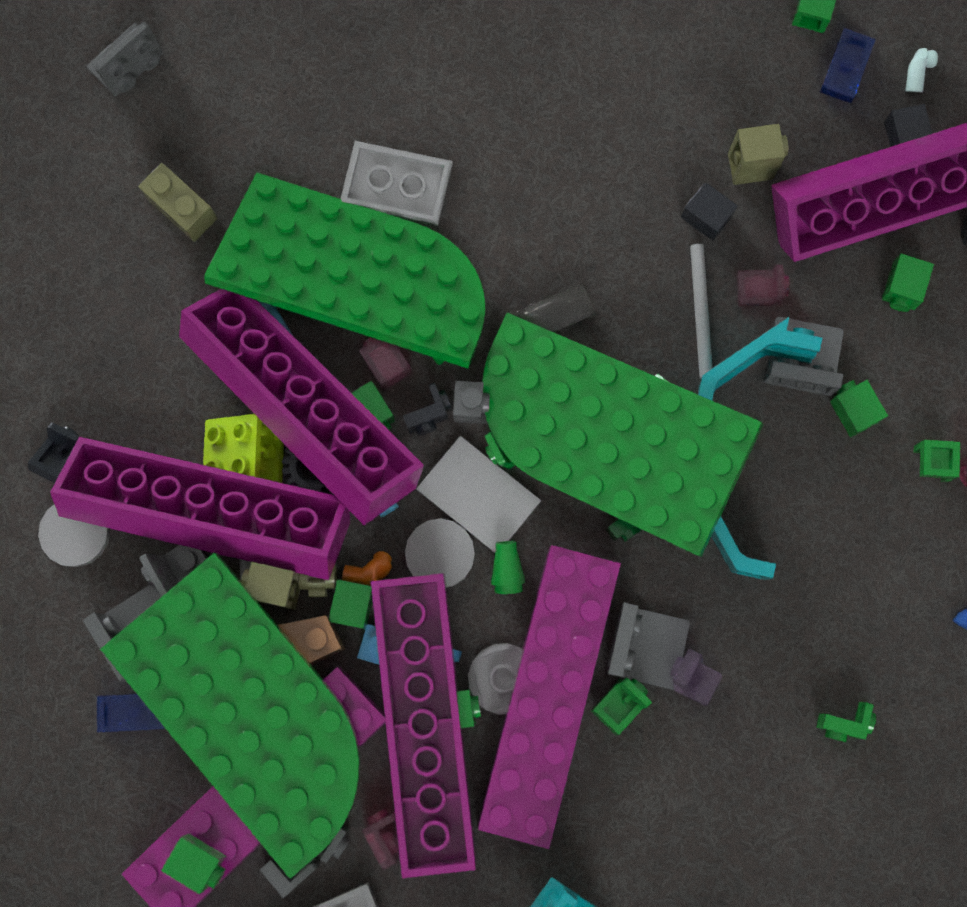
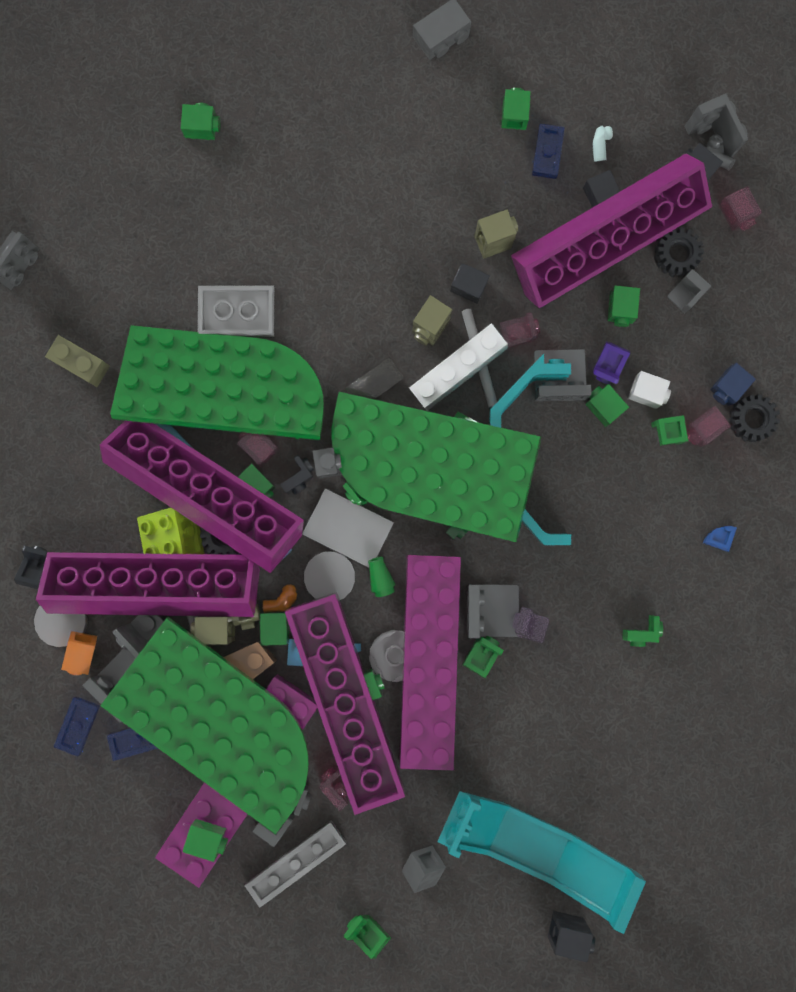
camera: 20 degrees left, 5 degrees up
(60, 675) = (76, 726): none -> clear blue plate
(87, 579) = (79, 653): none -> orange brick
(648, 248) = (431, 321): none -> olive brick
(672, 315) = (459, 367): none -> white brick
(875, 354) = (610, 363): none -> dark purple bracket
(920, 401) = (650, 390): none -> white brick

